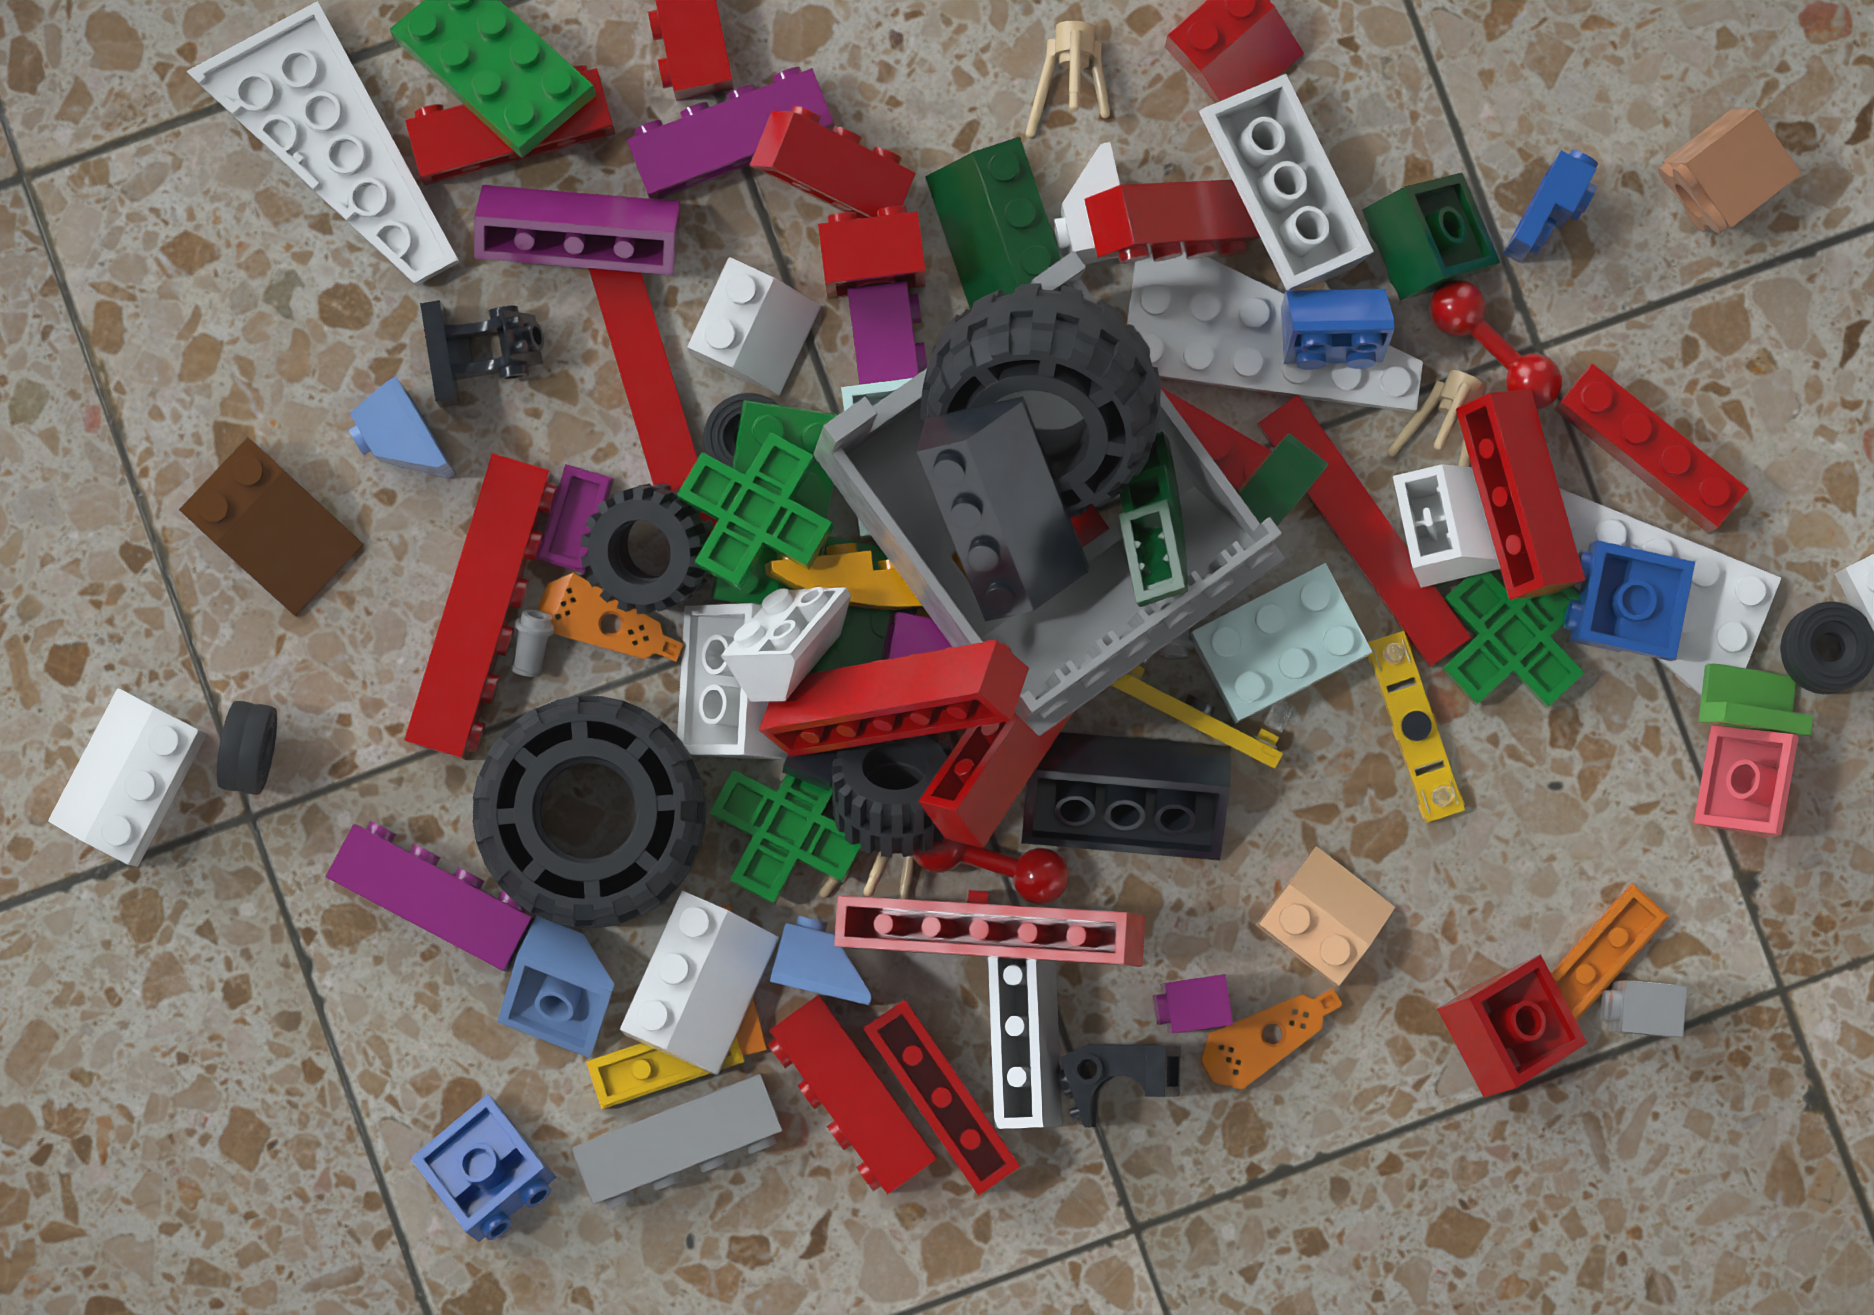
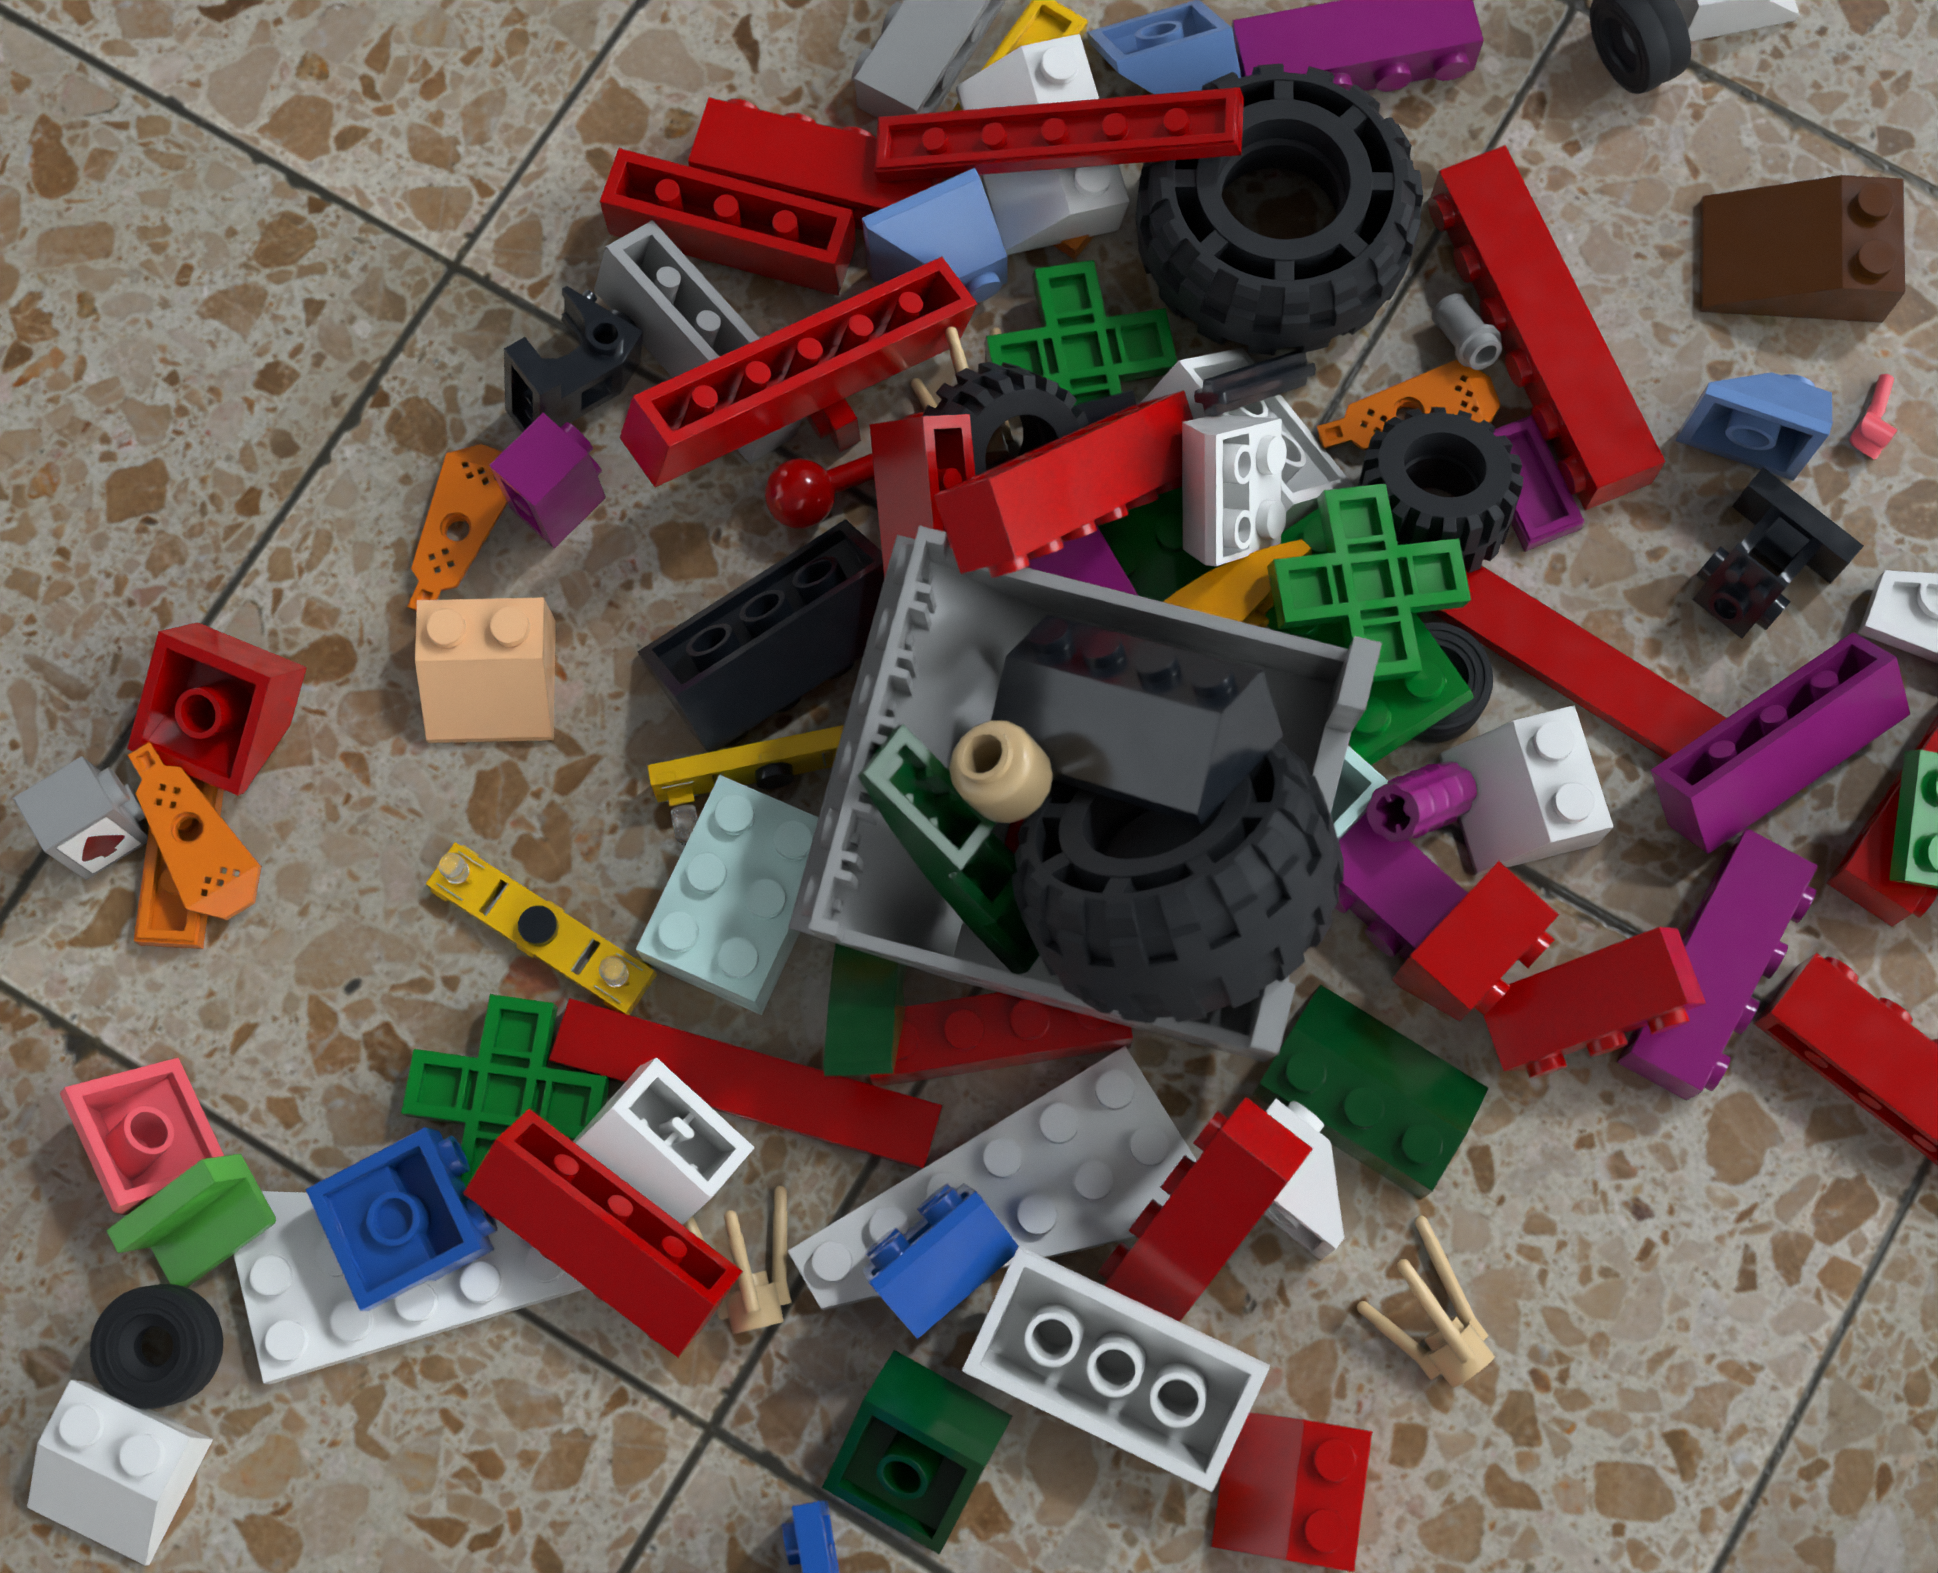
camera: 145 degrees right, 10 degrees down
(335, 376) = (1872, 432): none -> coral hand
(698, 961) = (1060, 135): none -> red tile
(704, 707) = (1254, 383): none -> black axle
(827, 365) = (1421, 801): none -> magenta axle
(1098, 535) = (1001, 771): none -> tan head
(1460, 310) = (821, 1393): red piece -> none
(1590, 933) = (205, 856): none -> orange piece
(1651, 449) = (503, 1406): red brick -> none

